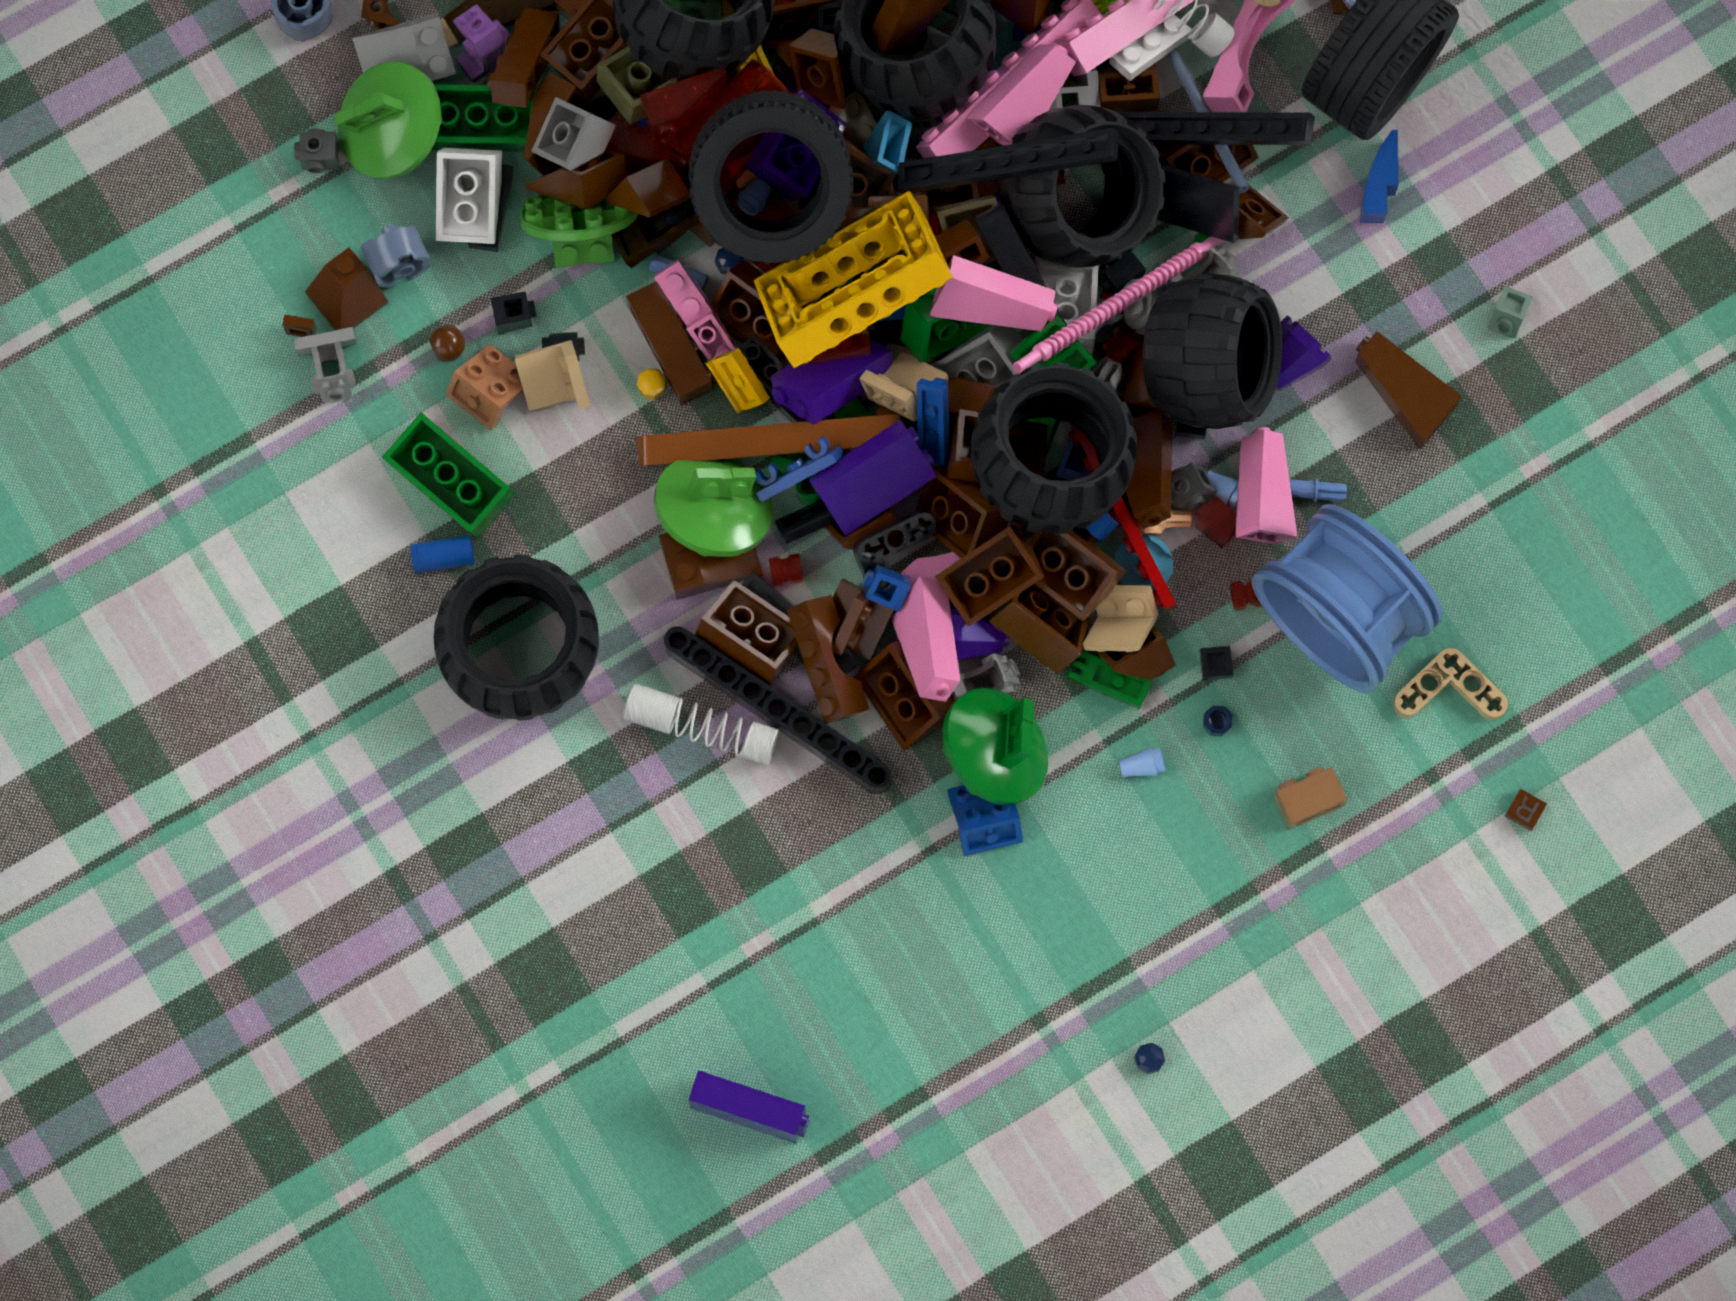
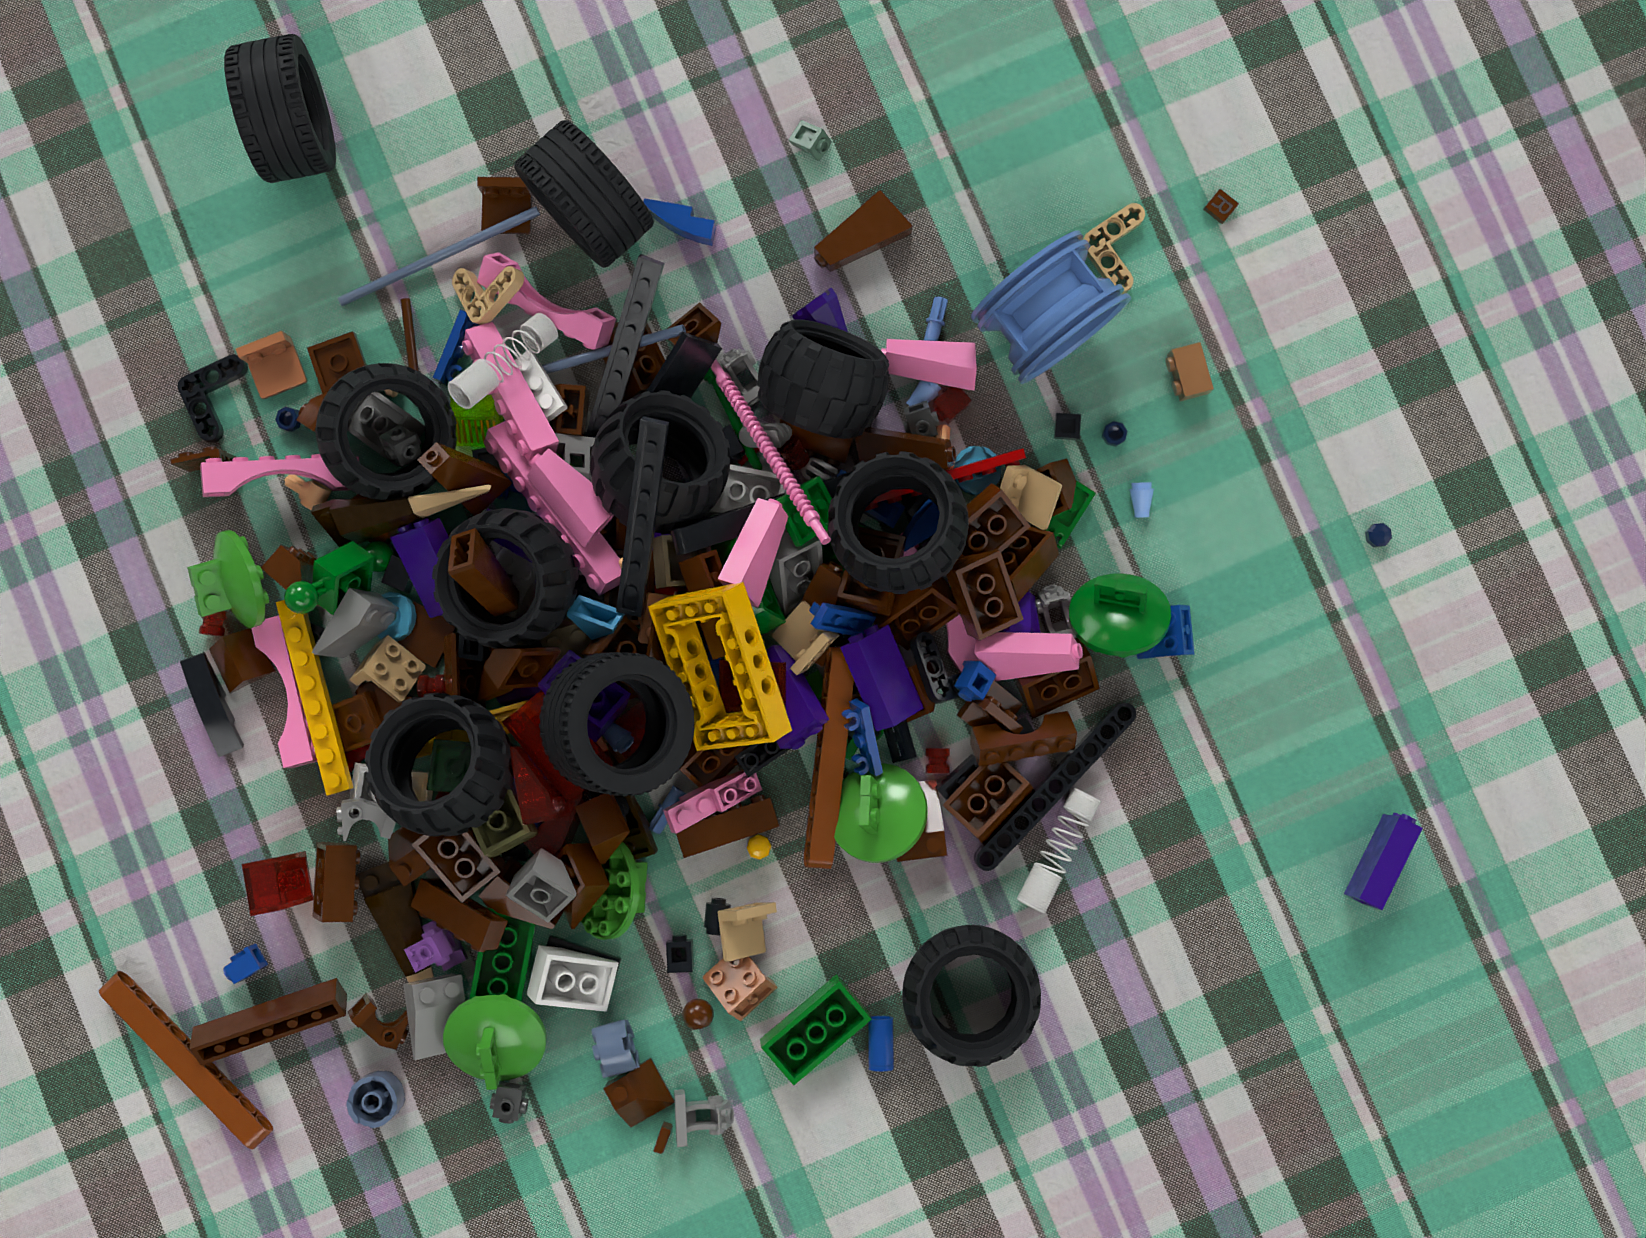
camera: 75 degrees left, 10 degrees up
(738, 380) = (773, 775): yellow plate -> none
(1242, 595) = (1014, 392): clear red wheel -> none

